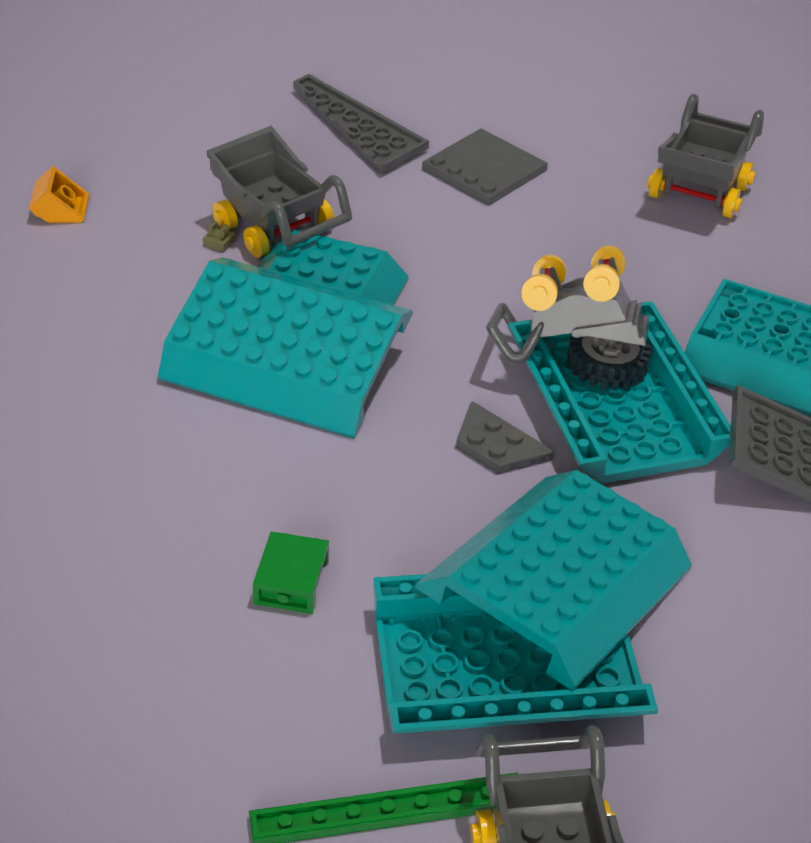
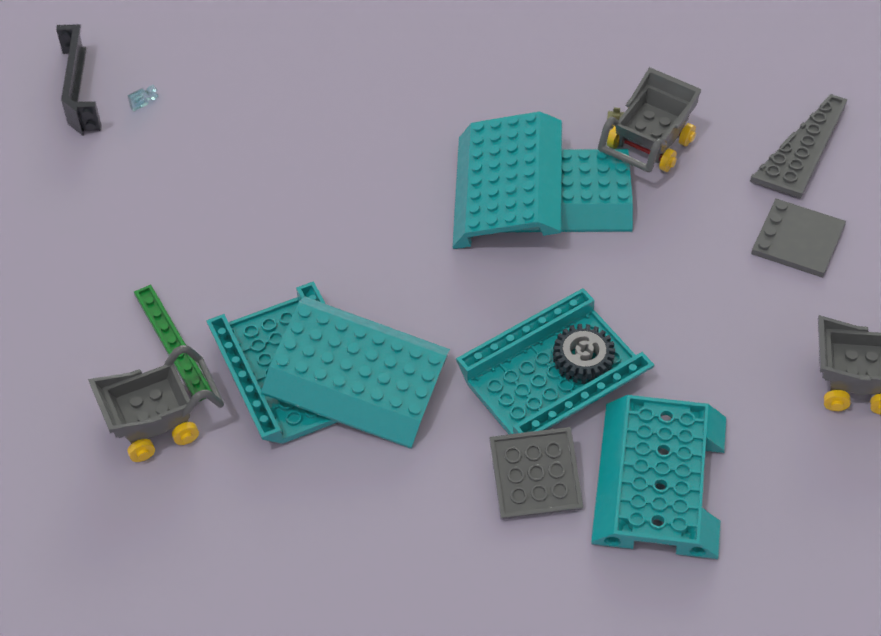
camera: 75 degrees right, 10 degrees up
(58, 198) = (606, 28): light orange slope -> none
(290, 572) = (319, 246): green panel -> none
(498, 442) = (481, 318): dark grey wing -> none
(584, 306) = (595, 321): piece -> none

